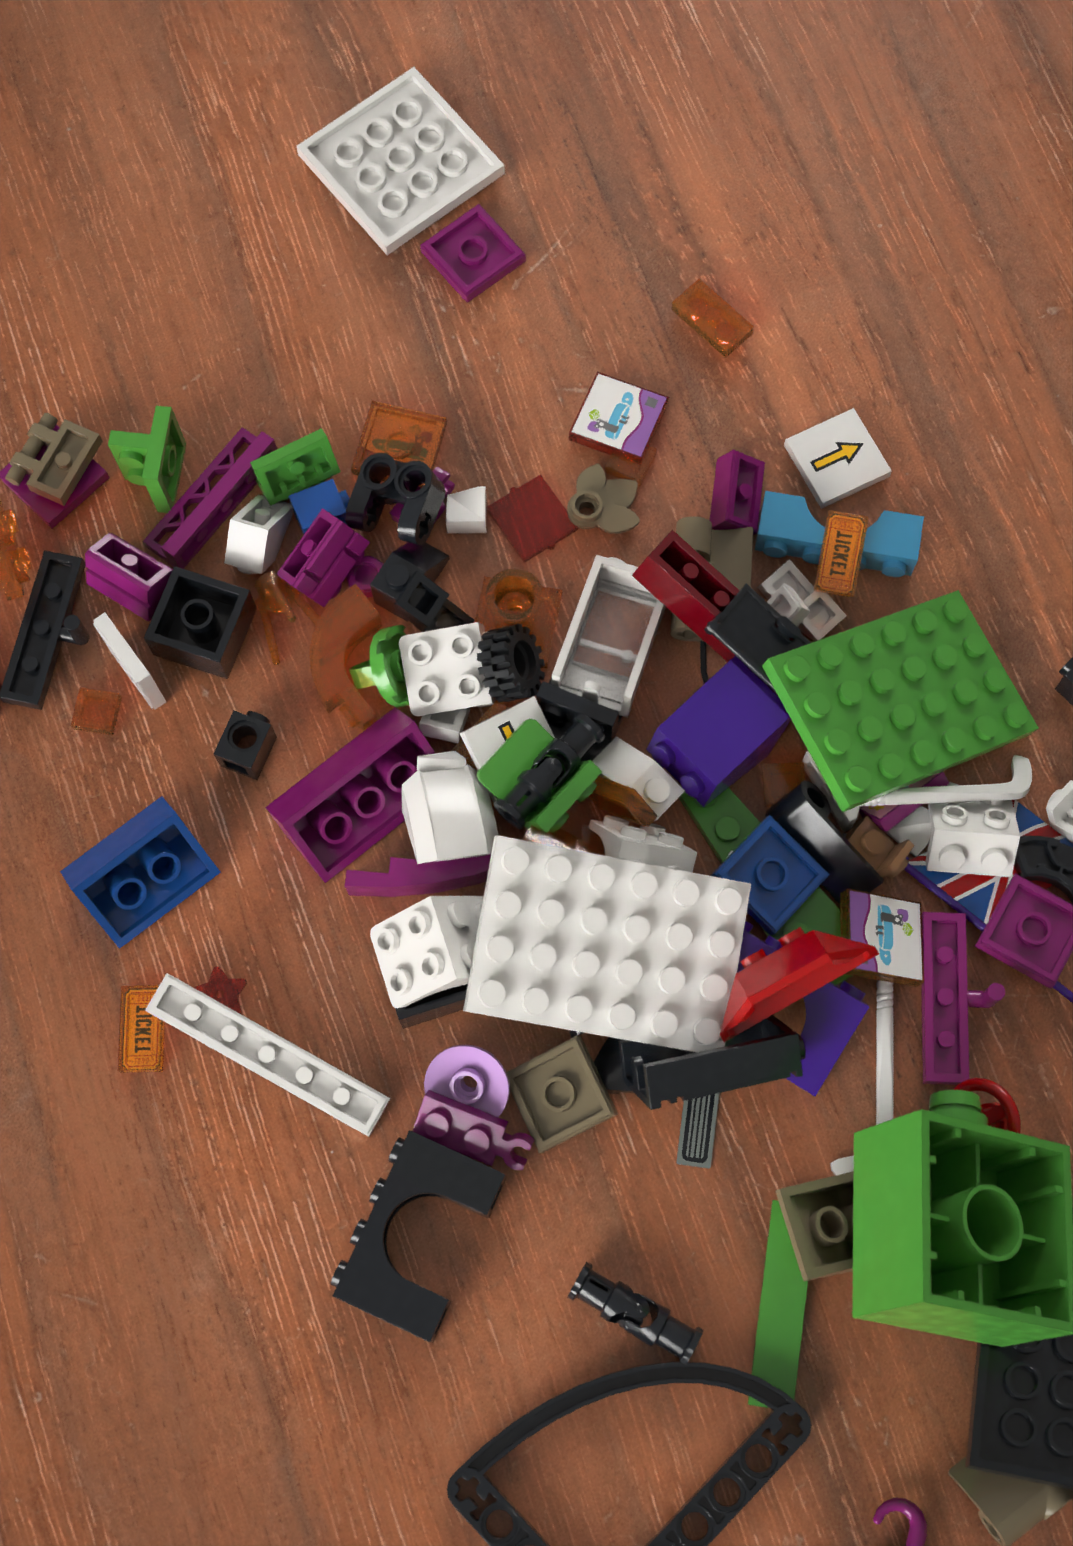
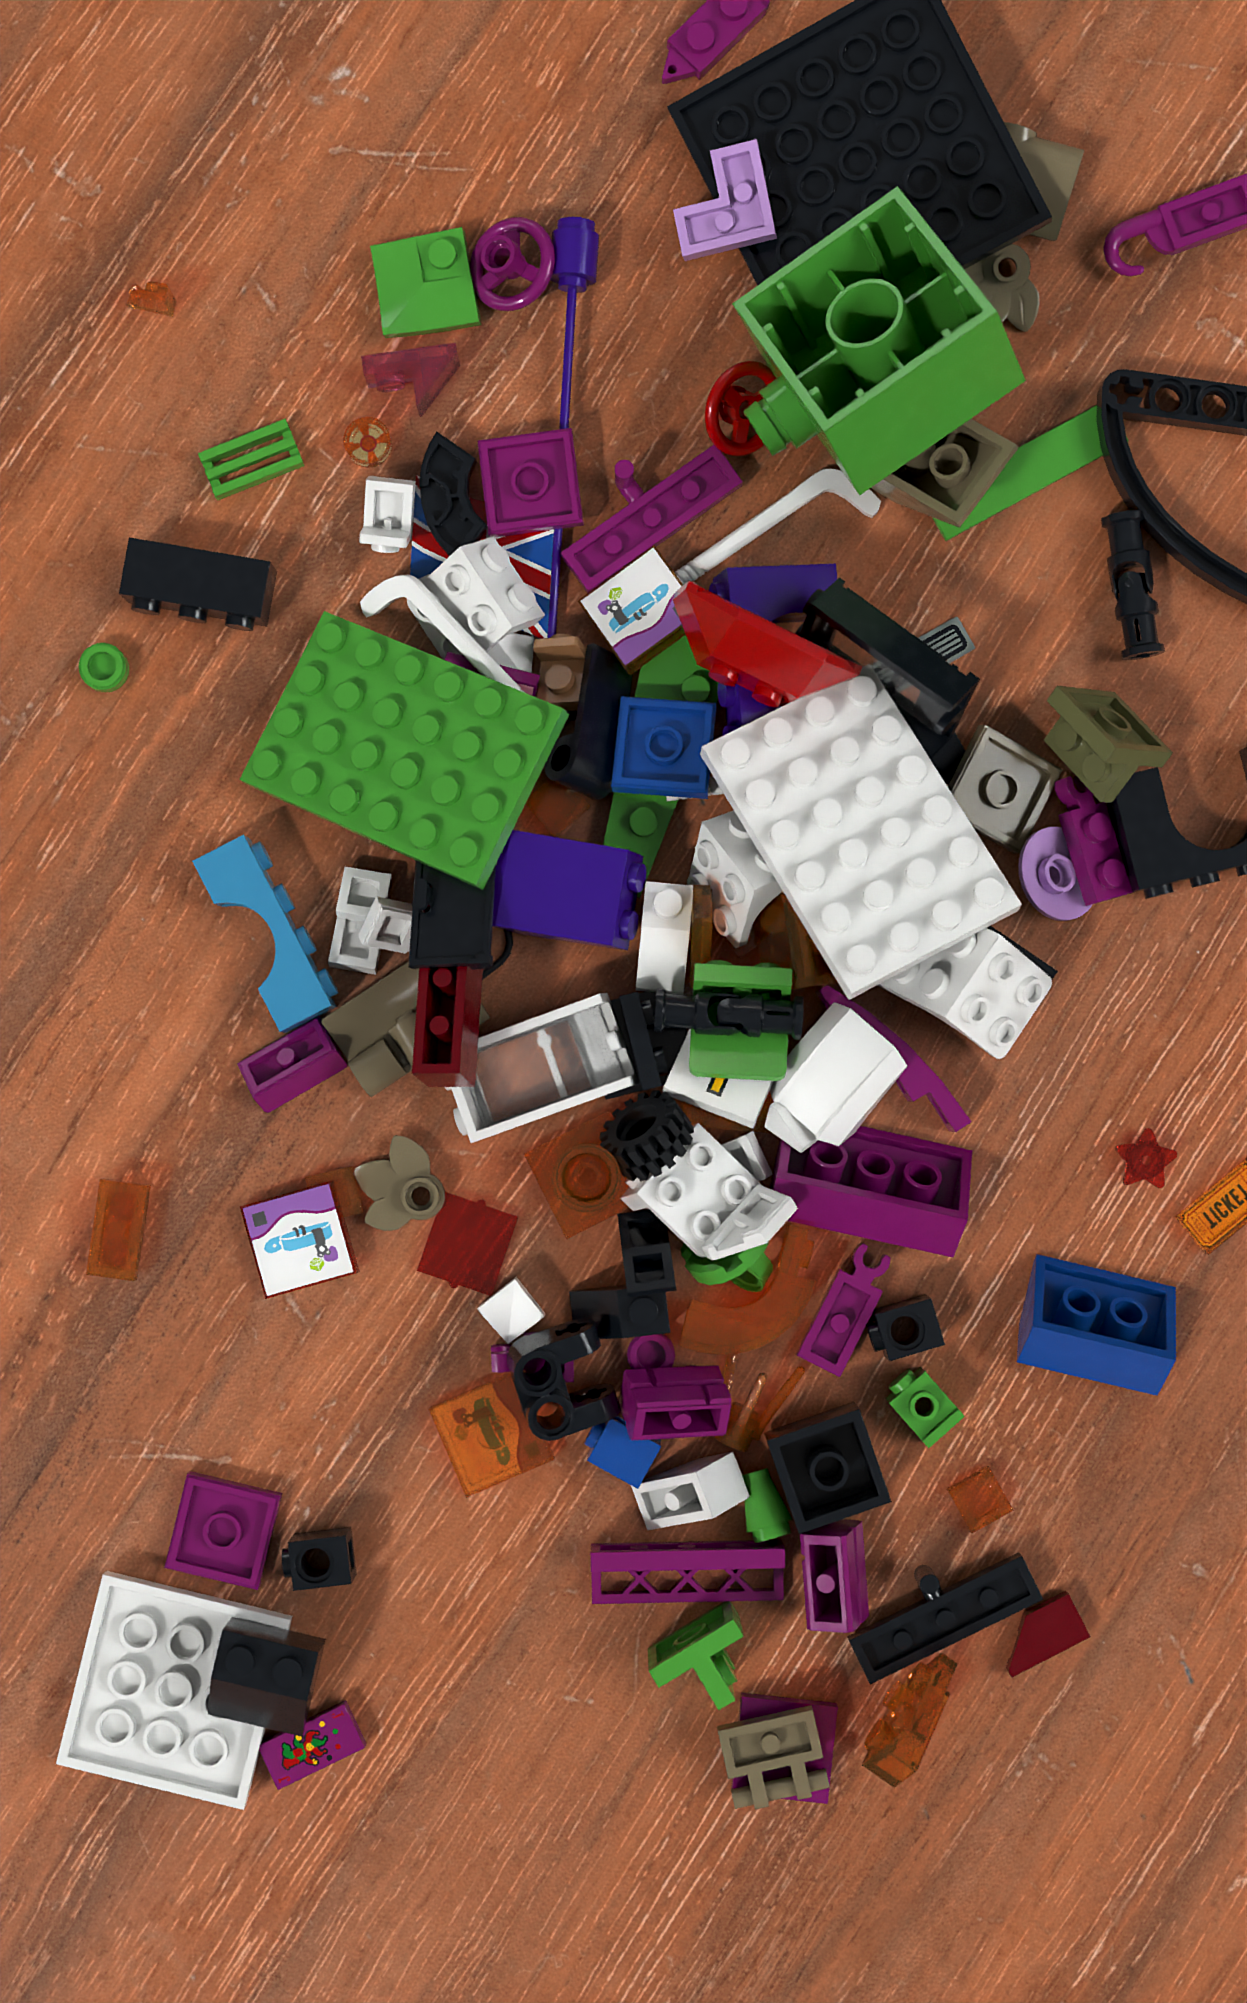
camera: 130 degrees left, 15 degrees up
(129, 661) = (919, 1500): white tile -> none
(196, 728) = (938, 1420): none -> bright green brick
(208, 564) = (765, 1509): none -> bright green cone
(268, 1054) = (1166, 1073): white tile -> none
(289, 712) = (843, 1314): none -> magenta plate
(295, 467) = (602, 1507): bright green bracket -> none
(300, 213) = (325, 1740): none -> magenta tile
(367, 207) = (264, 1676): none -> black slope
(397, 679) = (750, 1223): none -> white tile
(402, 304) = (339, 1548): none -> black brick
(539, 1193) = (1102, 739): none -> olive bracket
(837, 458) = (179, 995): white tile -> none
(841, 553) = (294, 910): clear orange tile -> none
(933, 1389) = (1011, 296): none -> dark tan plate

